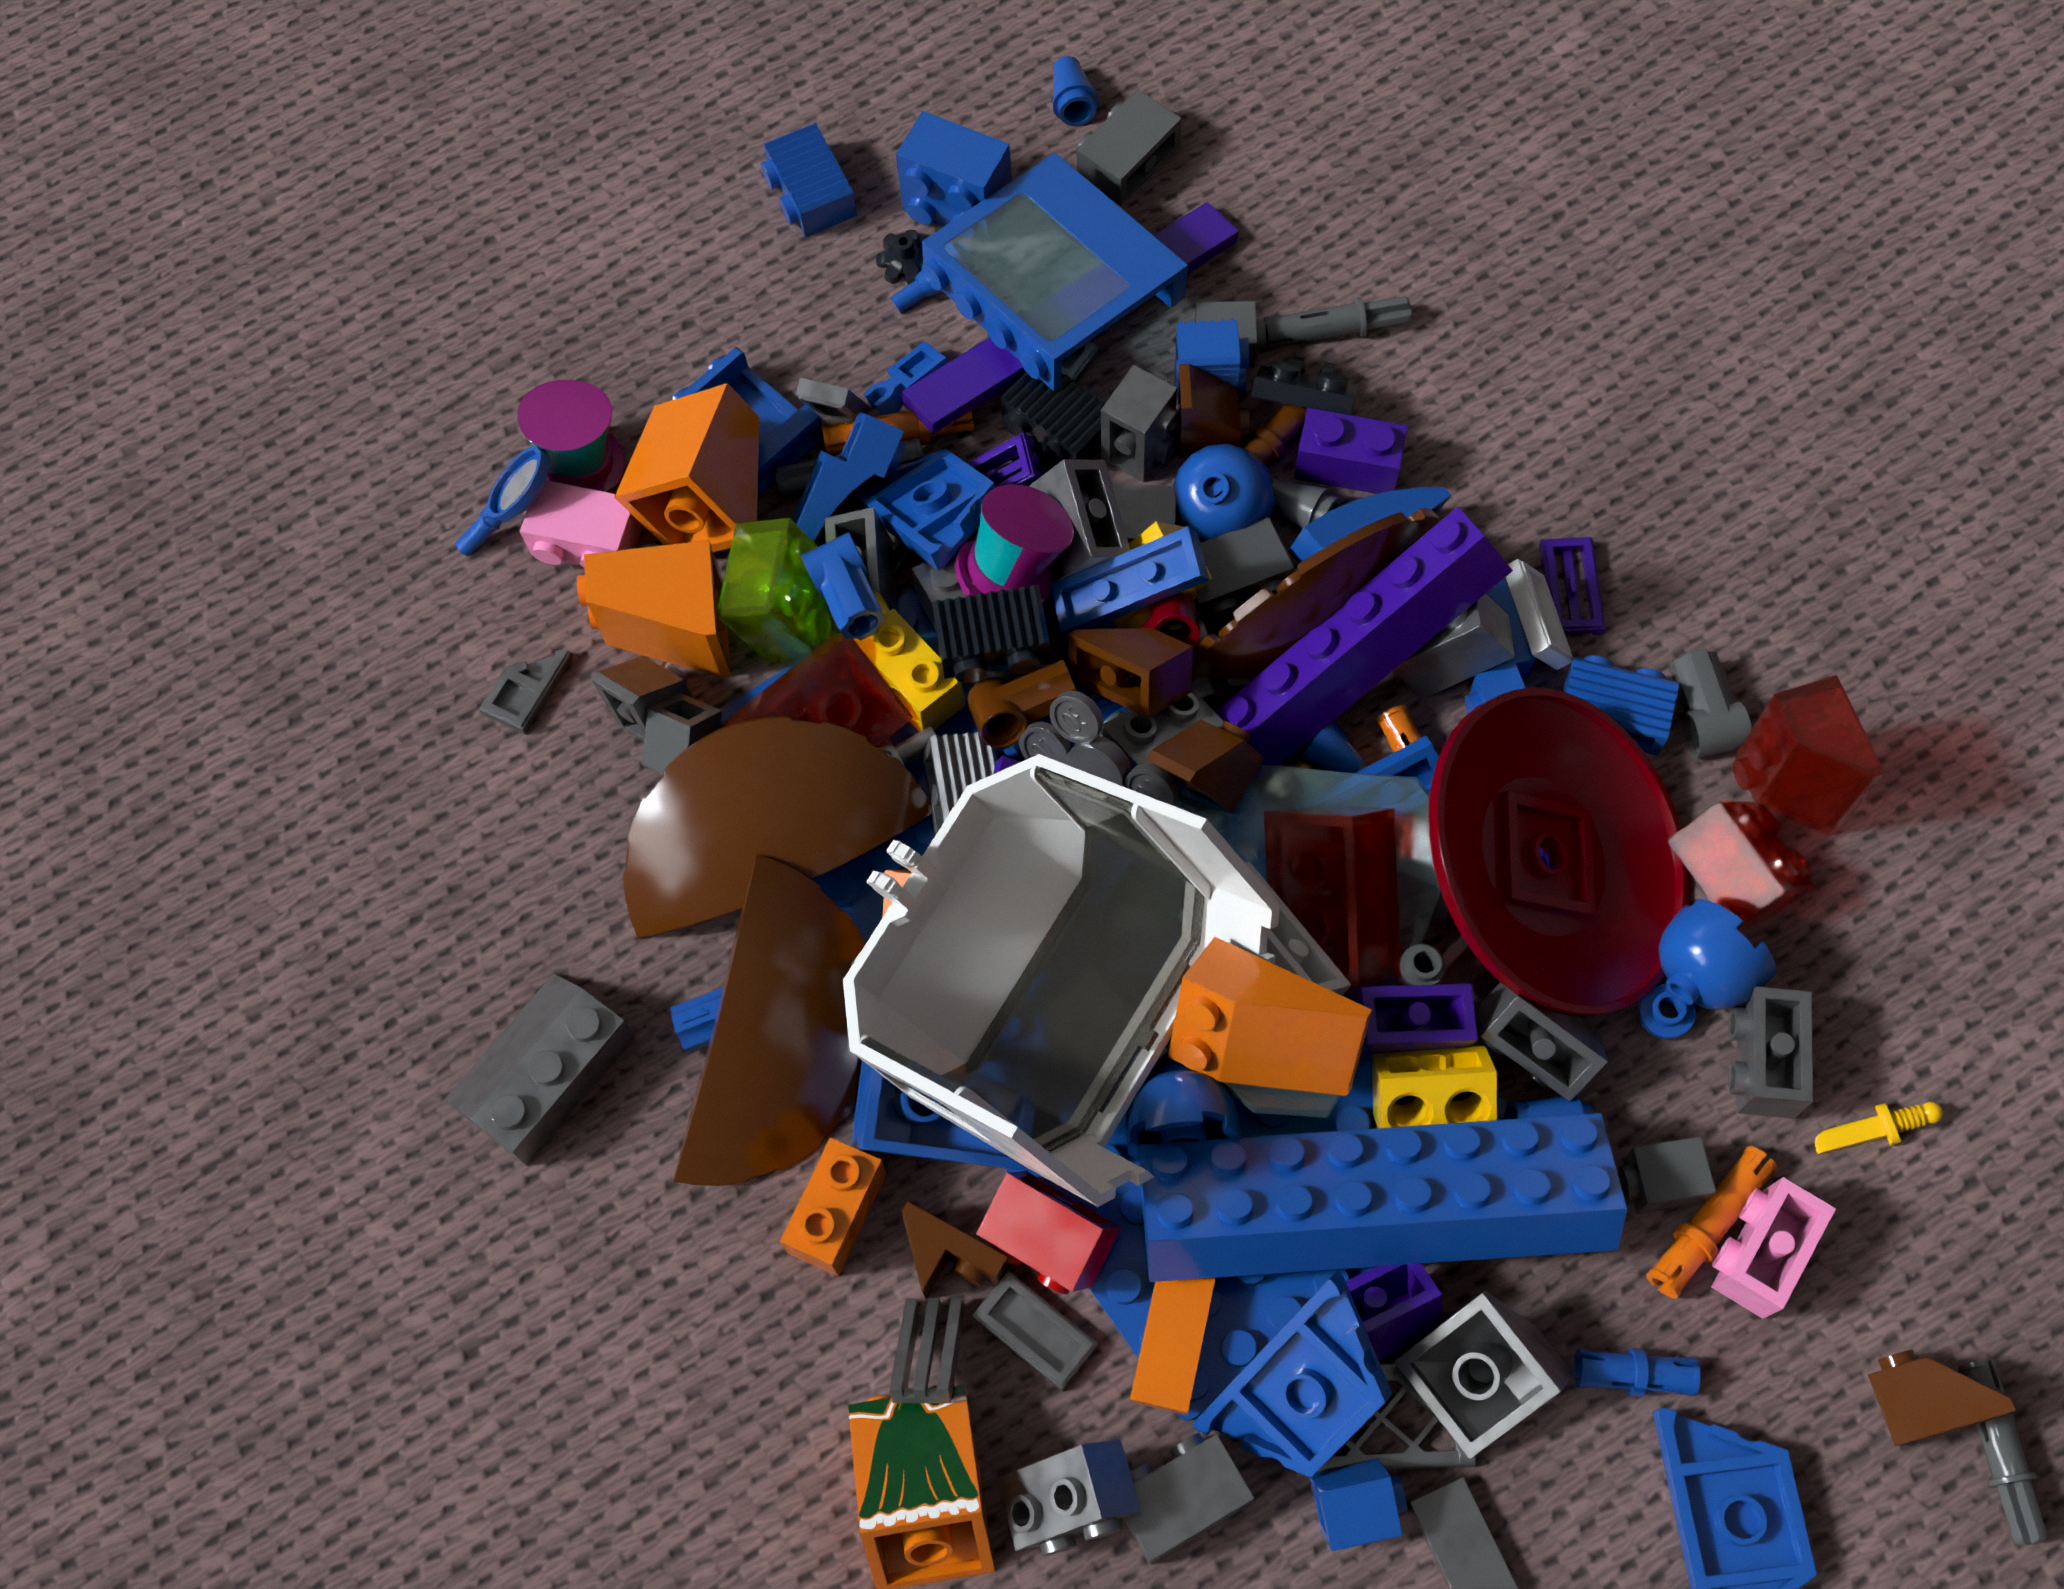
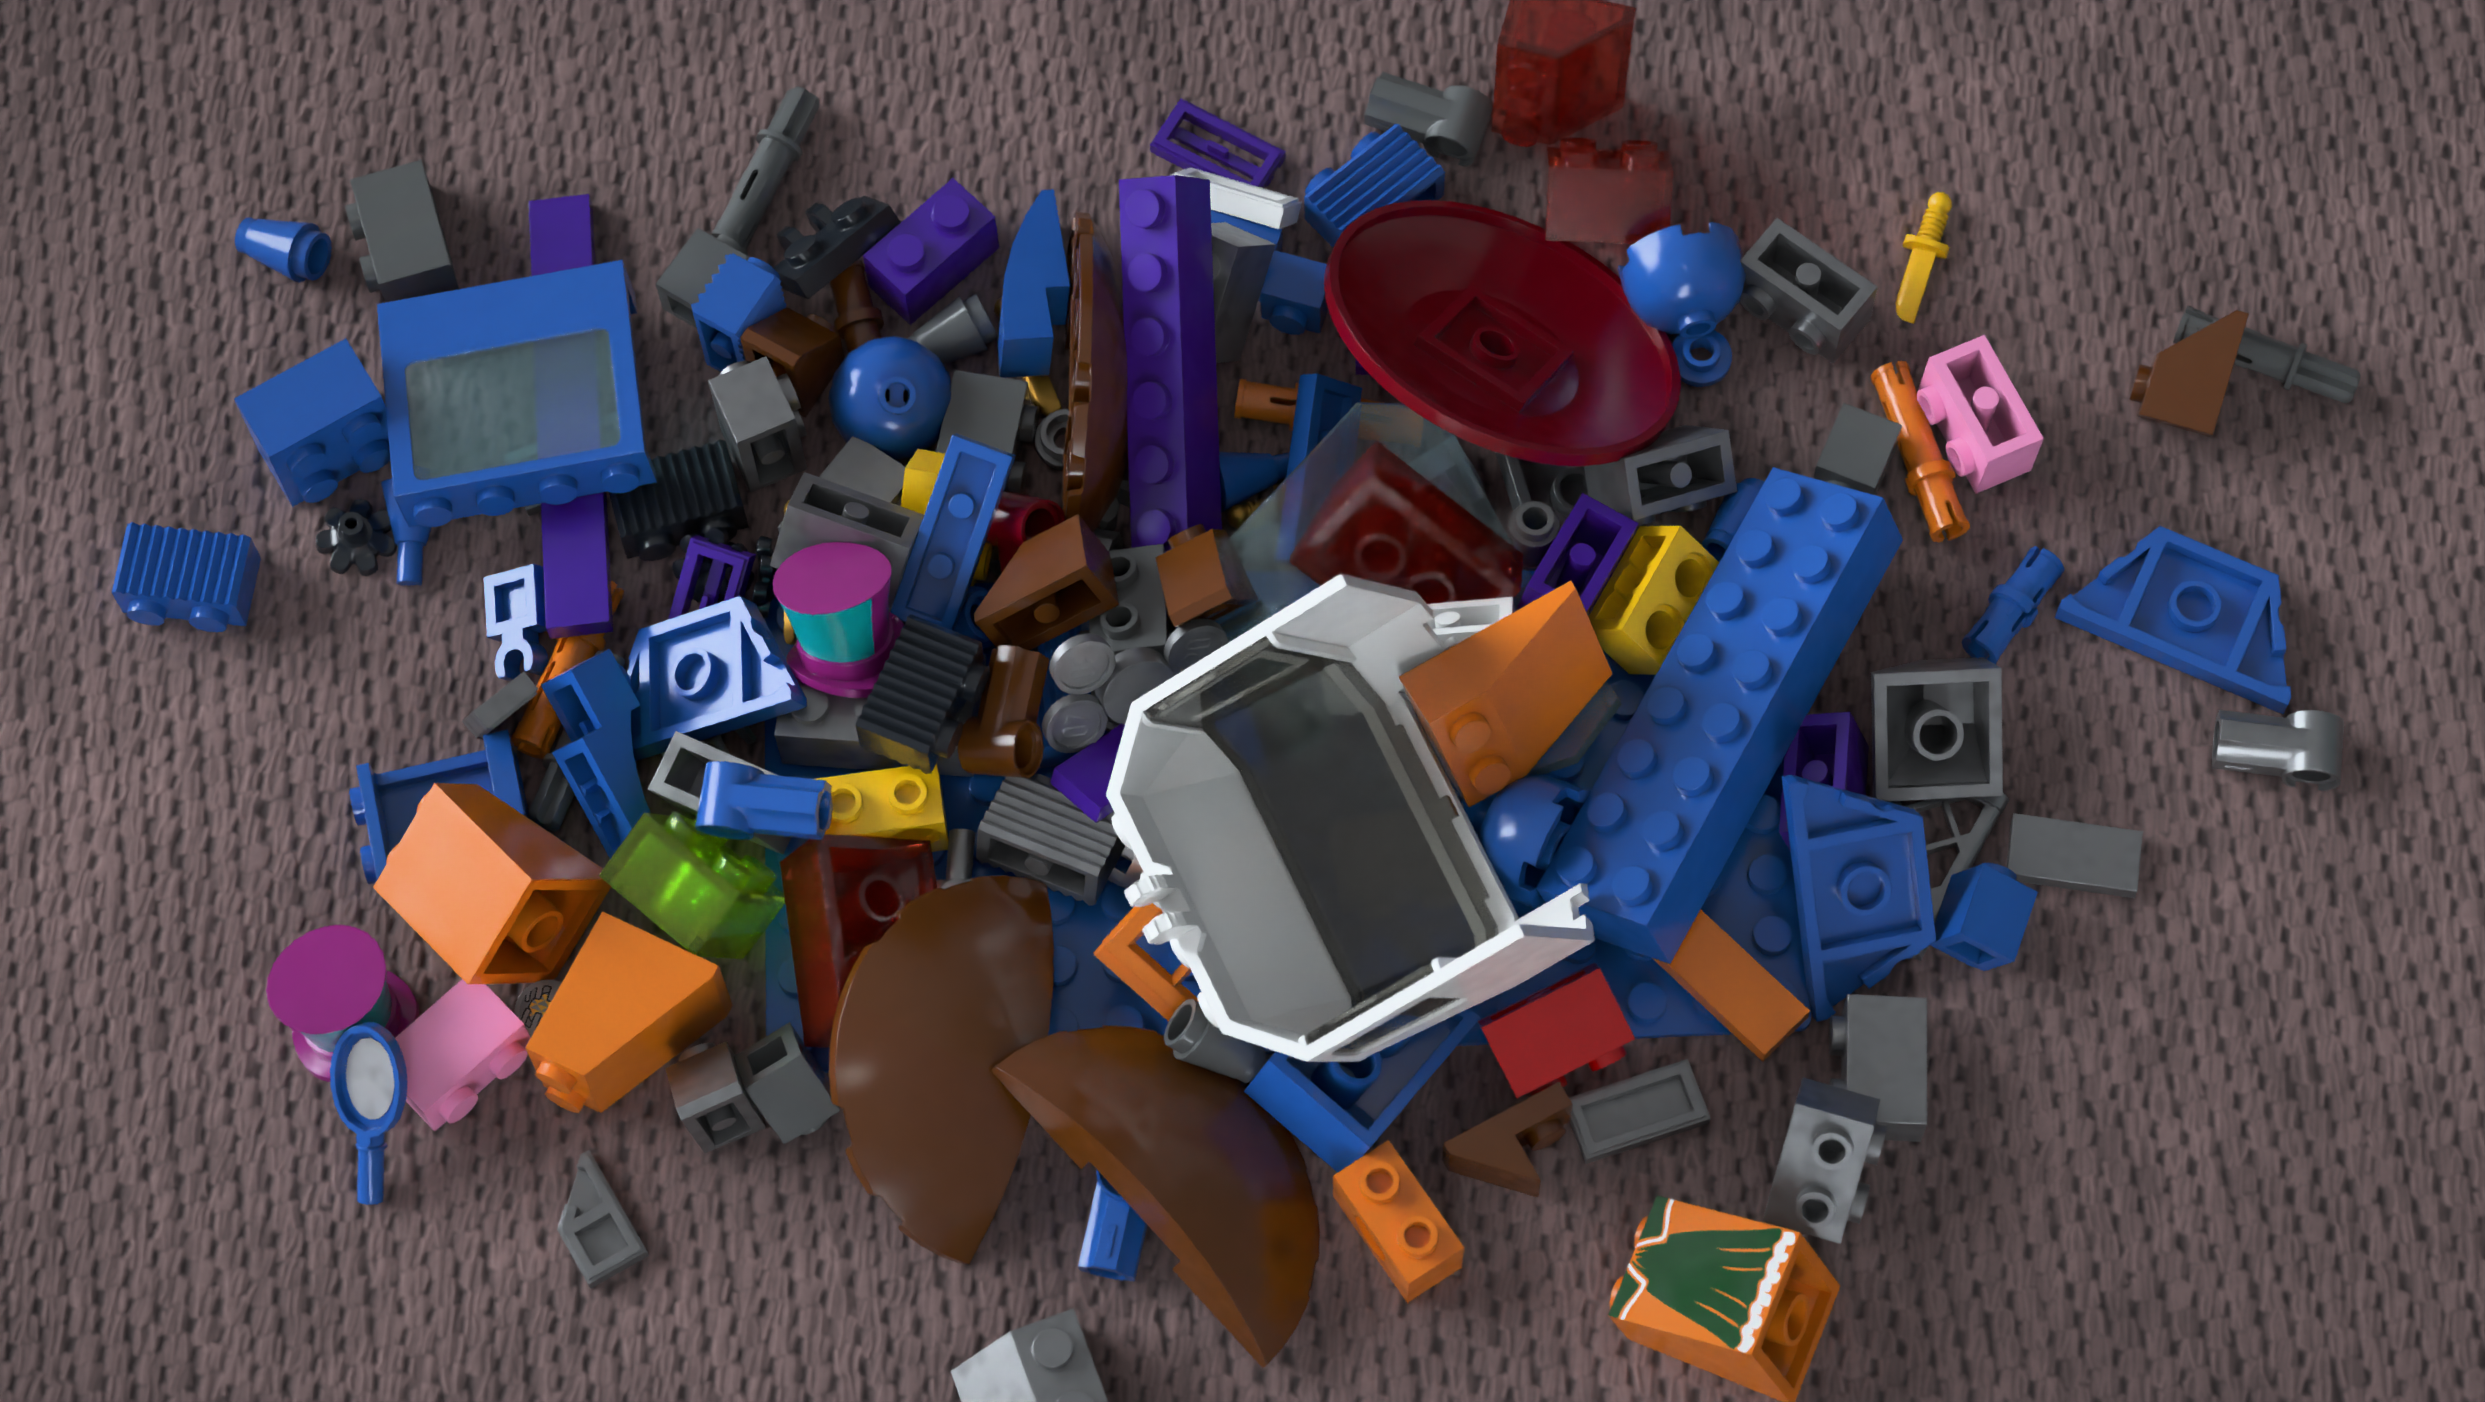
camera: 60 degrees left, 0 degrees up
(930, 1316) = (1564, 1193): flat silver tile -> none

